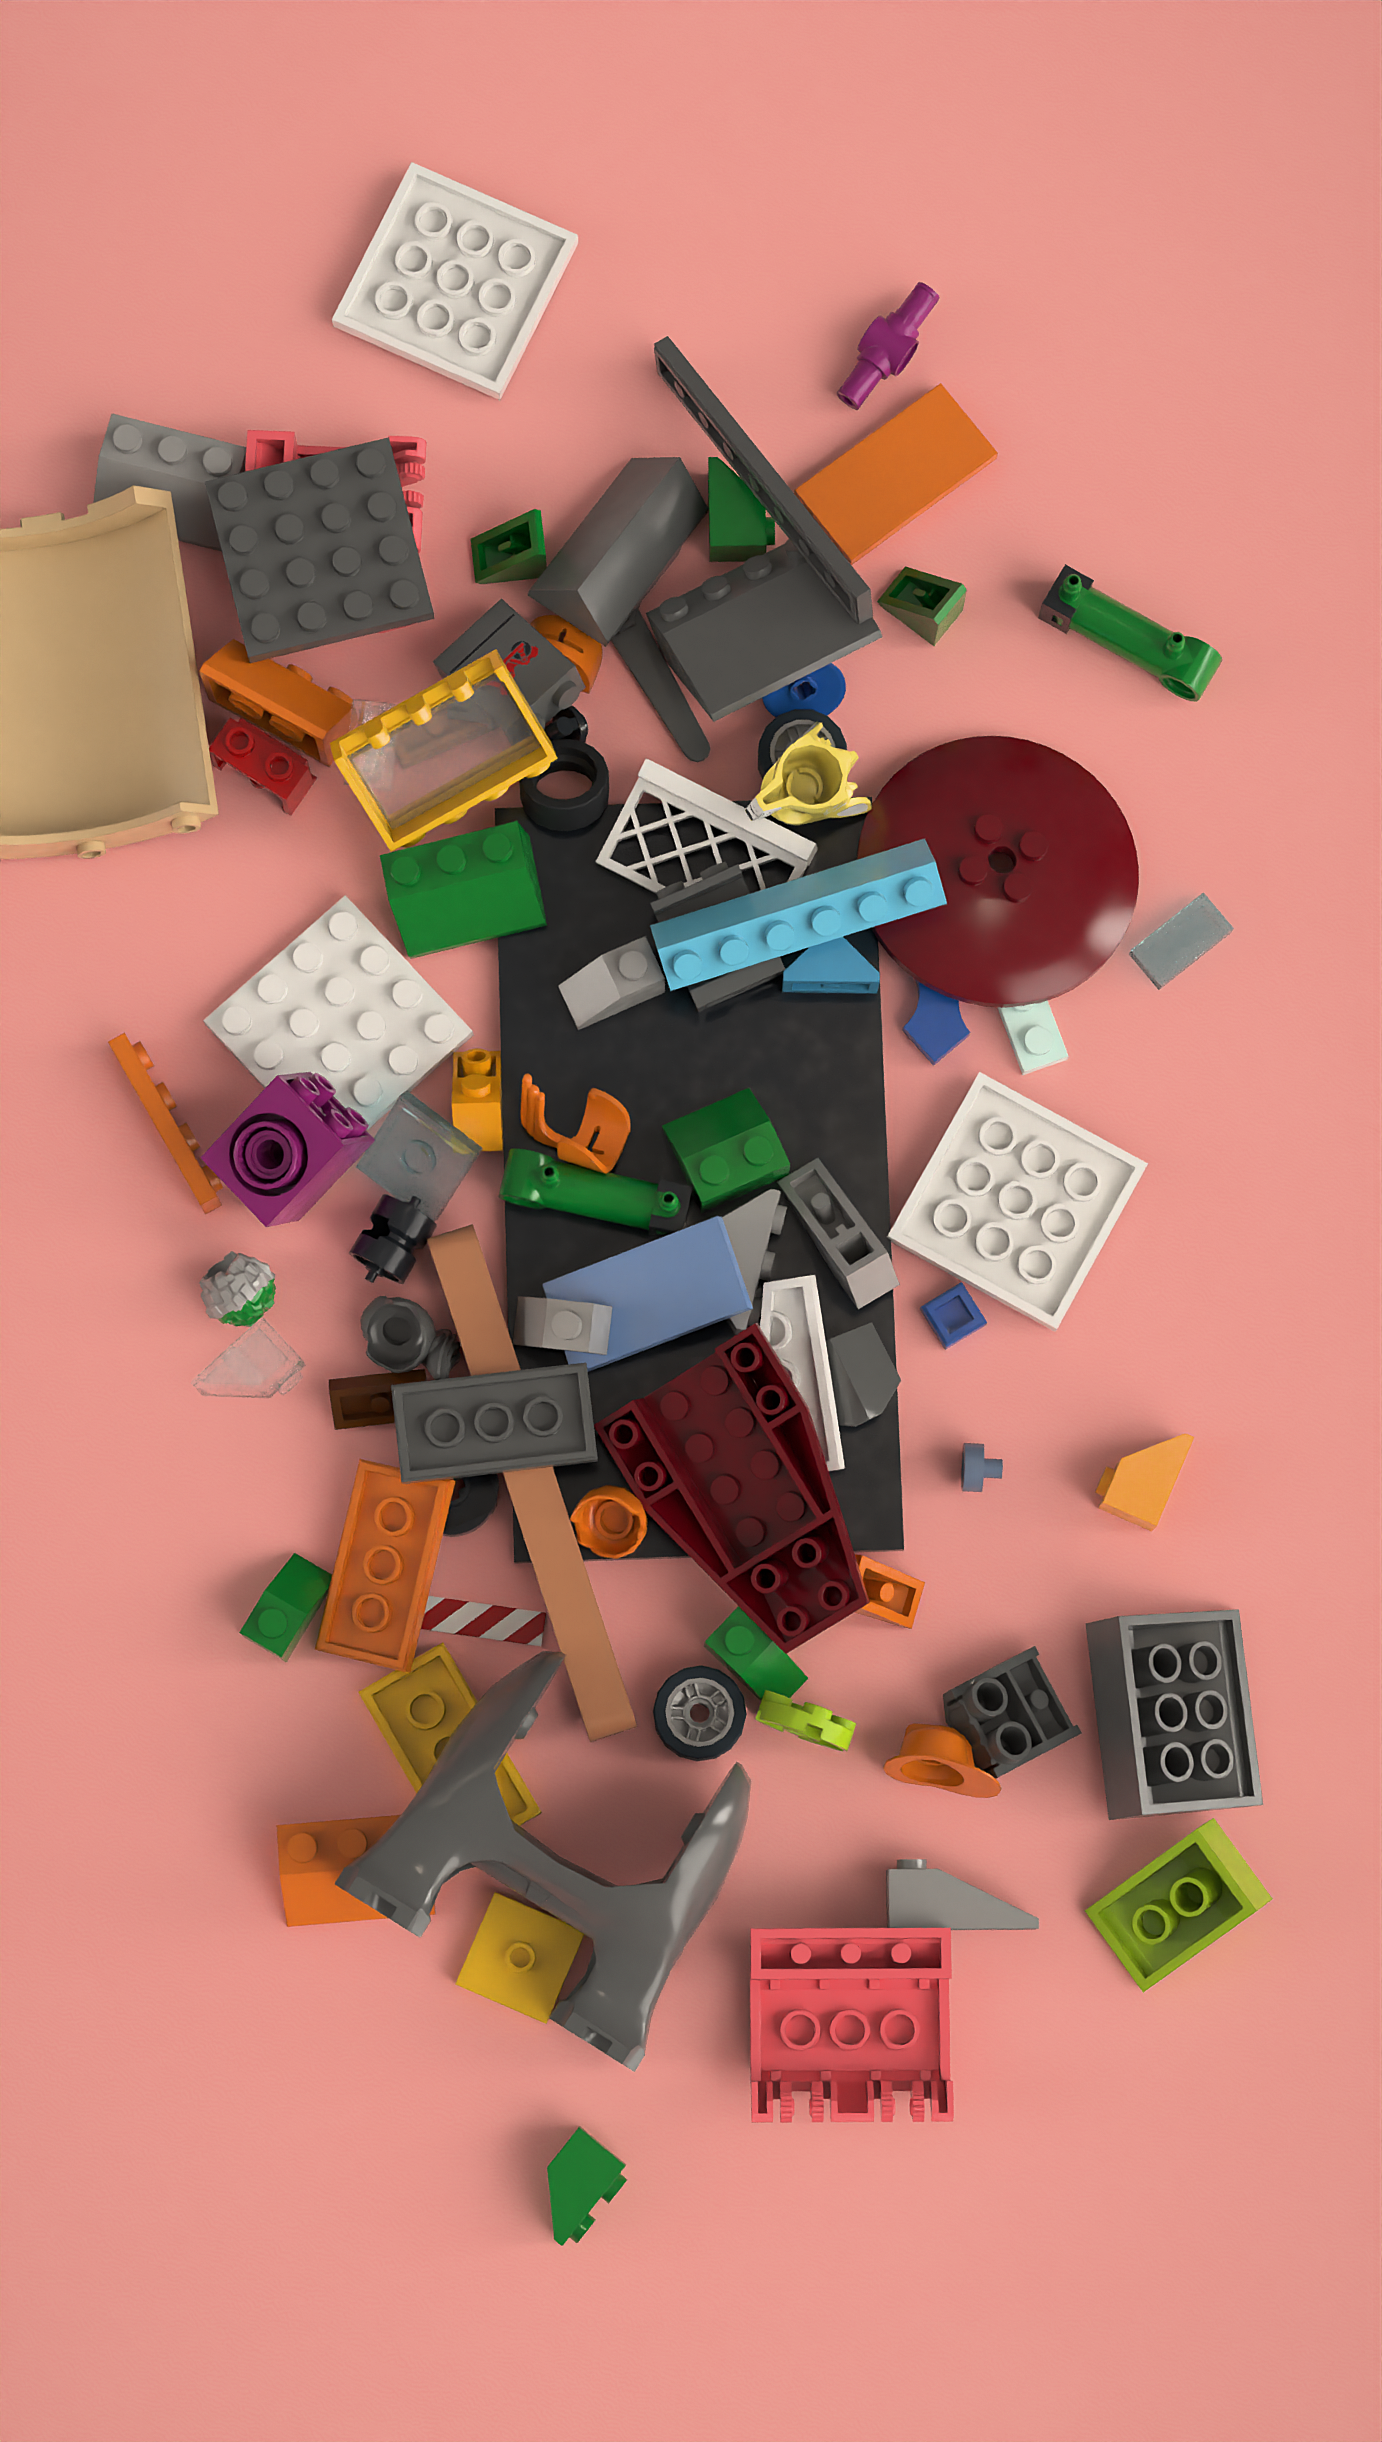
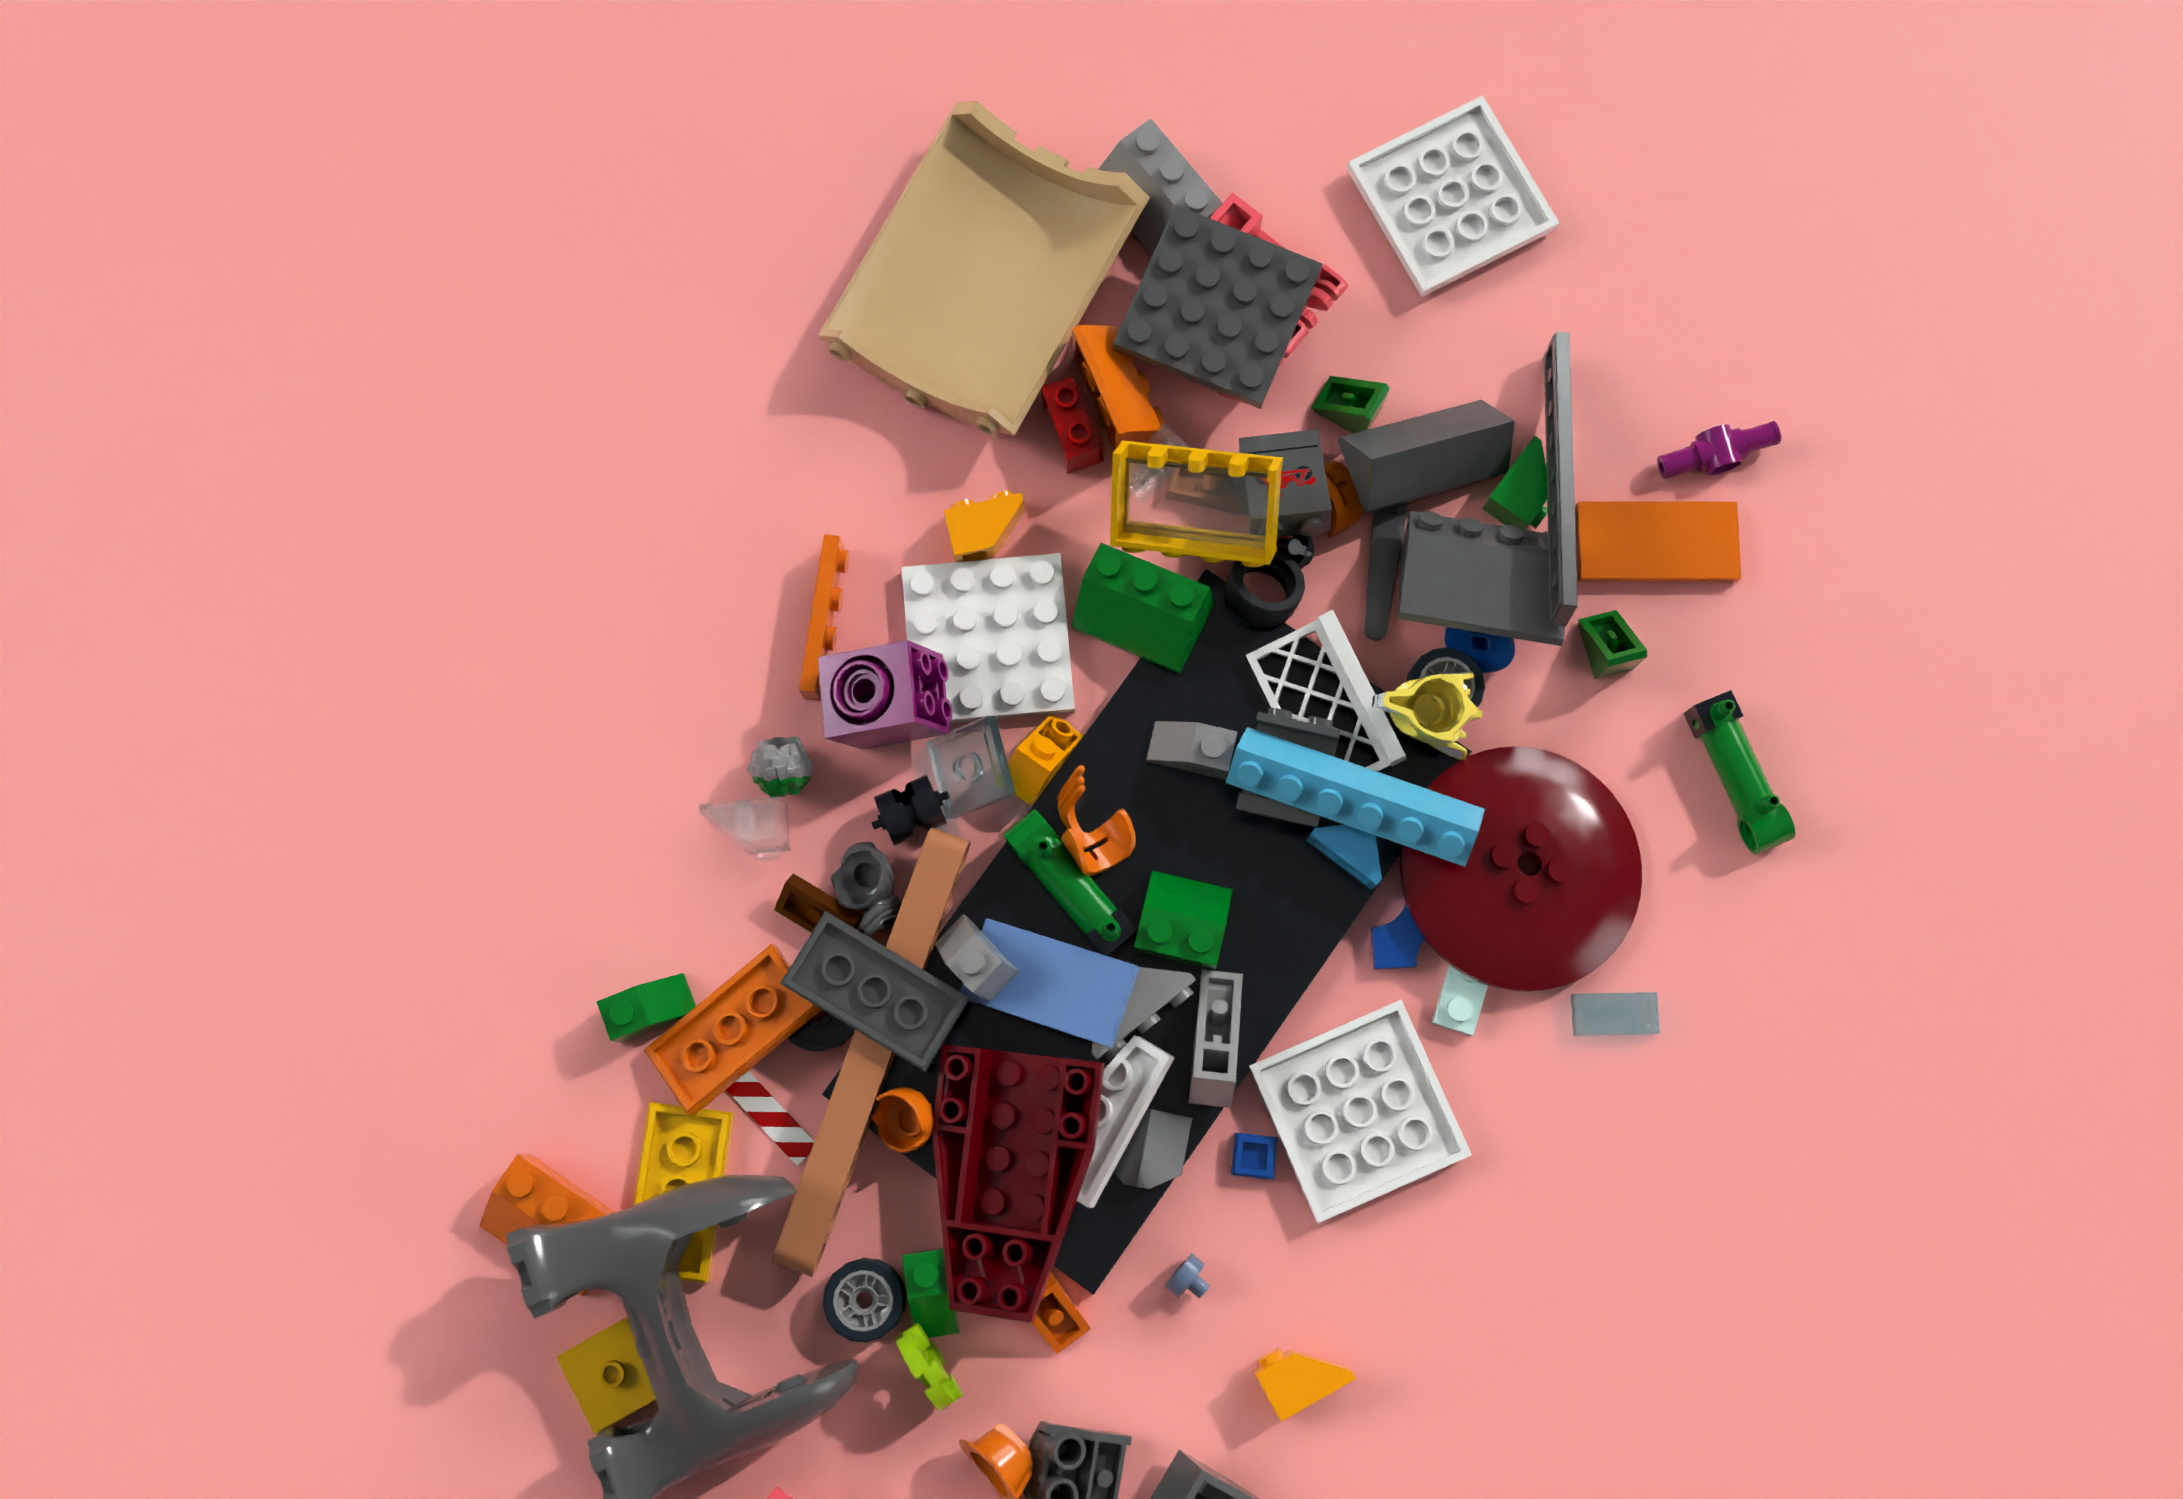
camera: 40 degrees right, 0 degrees up
(251, 927) = (982, 527): none -> light orange slope

